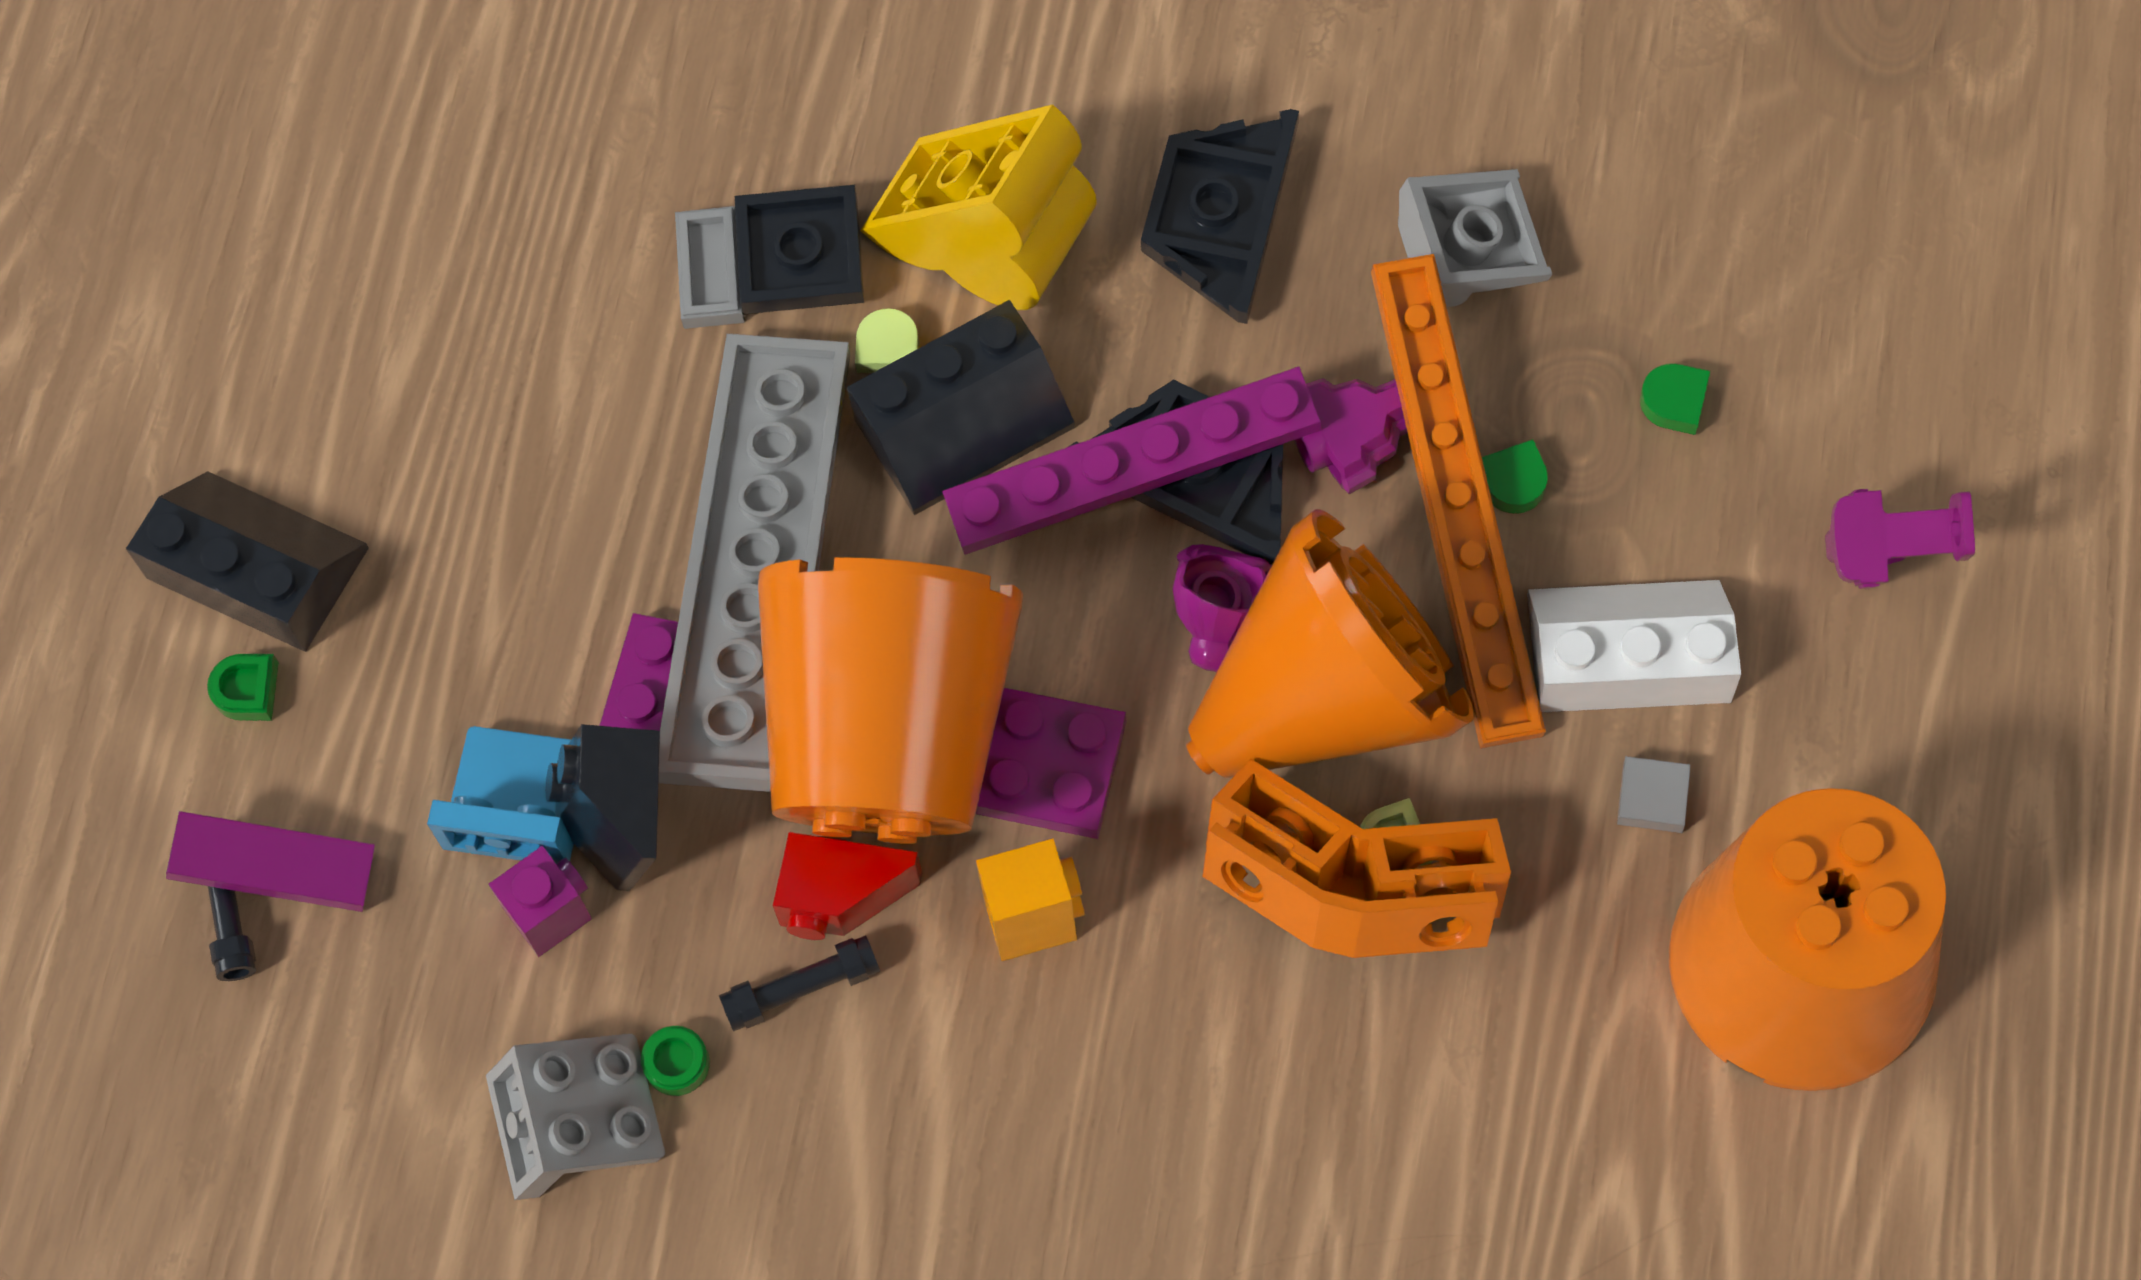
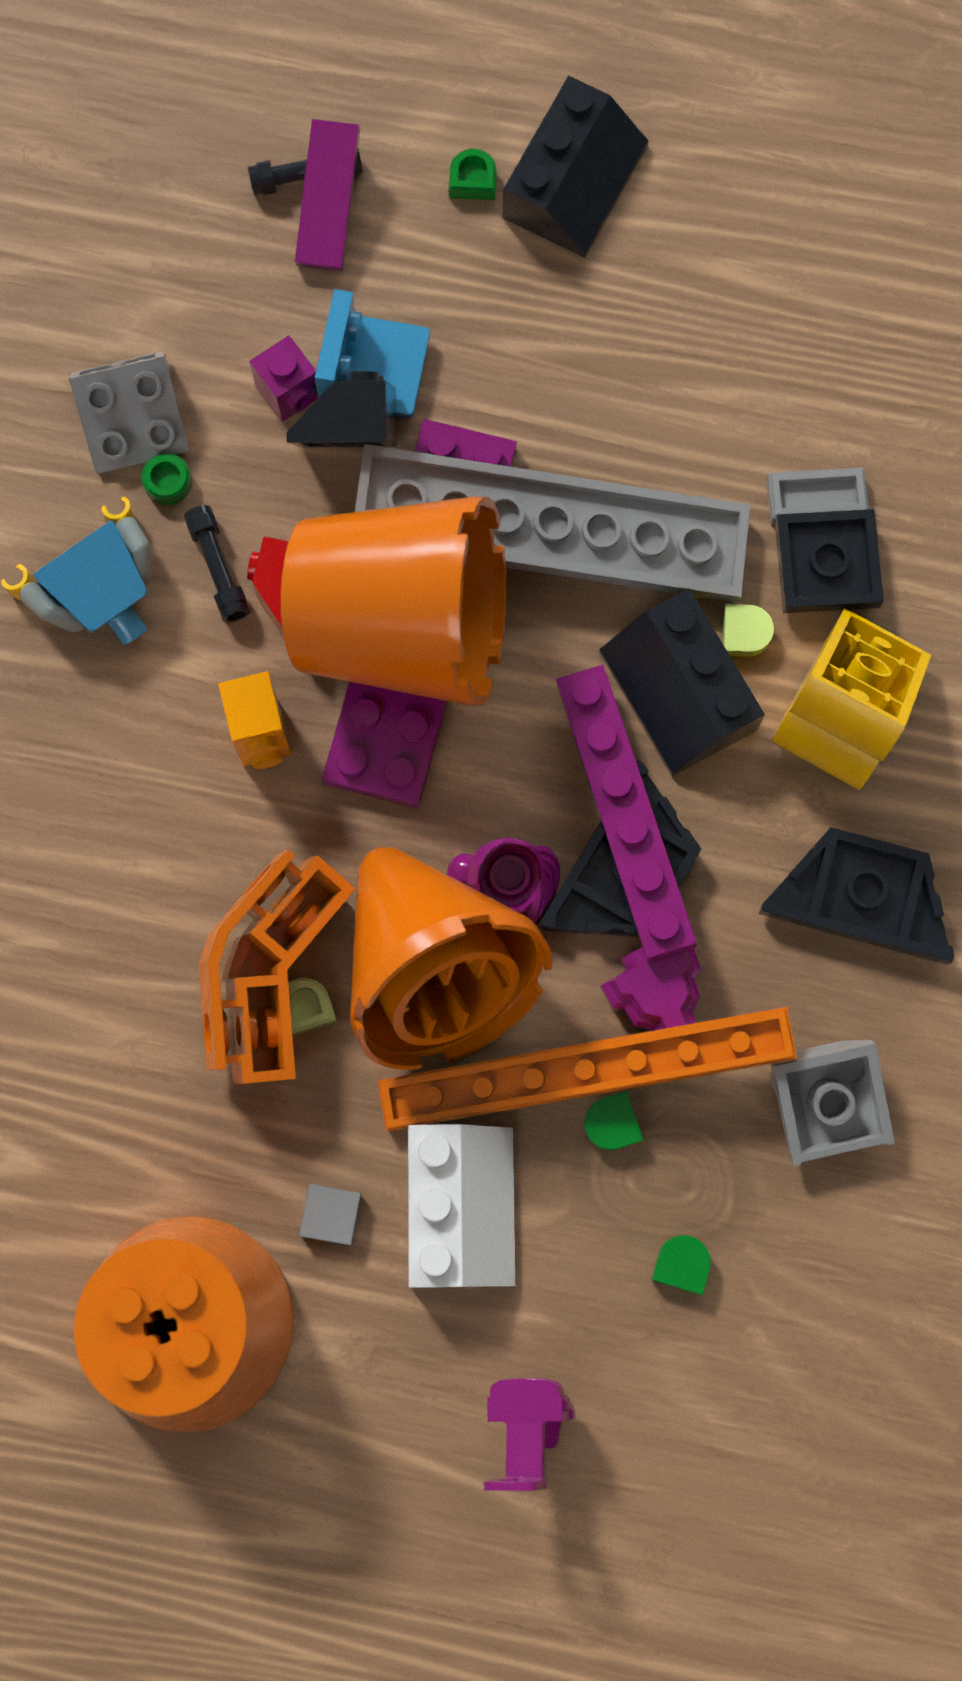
camera: 85 degrees right, 10 degrees up
(829, 1131) = (93, 580): none -> dark azure torso

